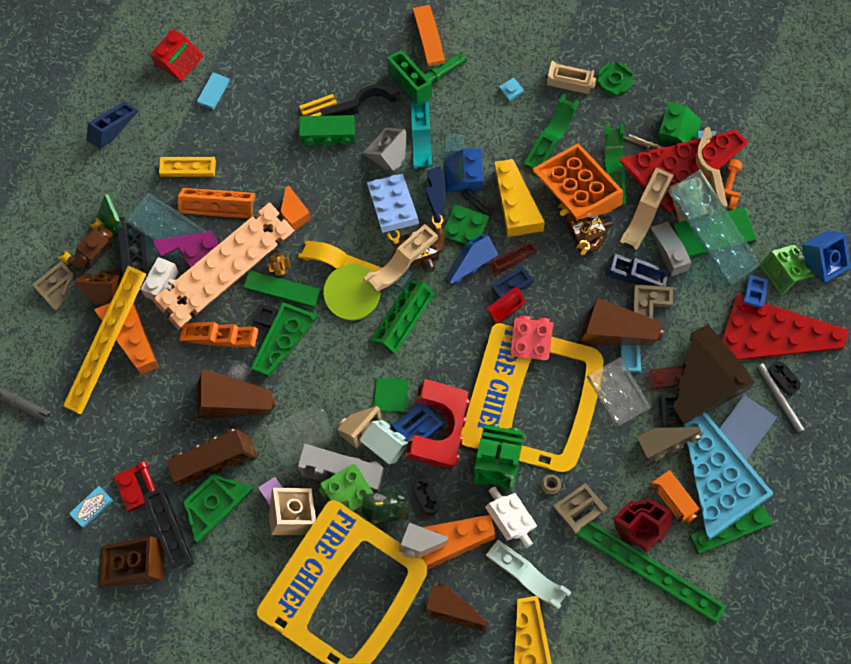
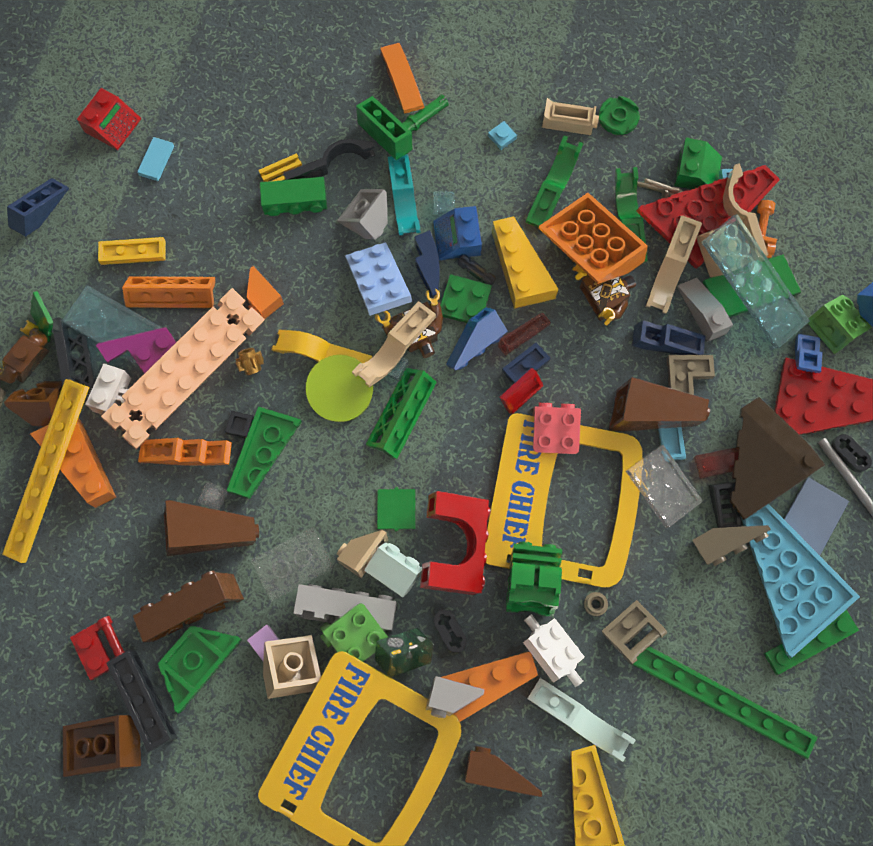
camera: 10 degrees left, 5 degrees up
(91, 507) = (45, 678): tile -> none
(282, 289) = (256, 390): green tile -> none
(424, 427) = (437, 548): blue plate -> none
(643, 523) = (711, 645): dark red brick -> none
(675, 497) = (744, 609): orange window -> none

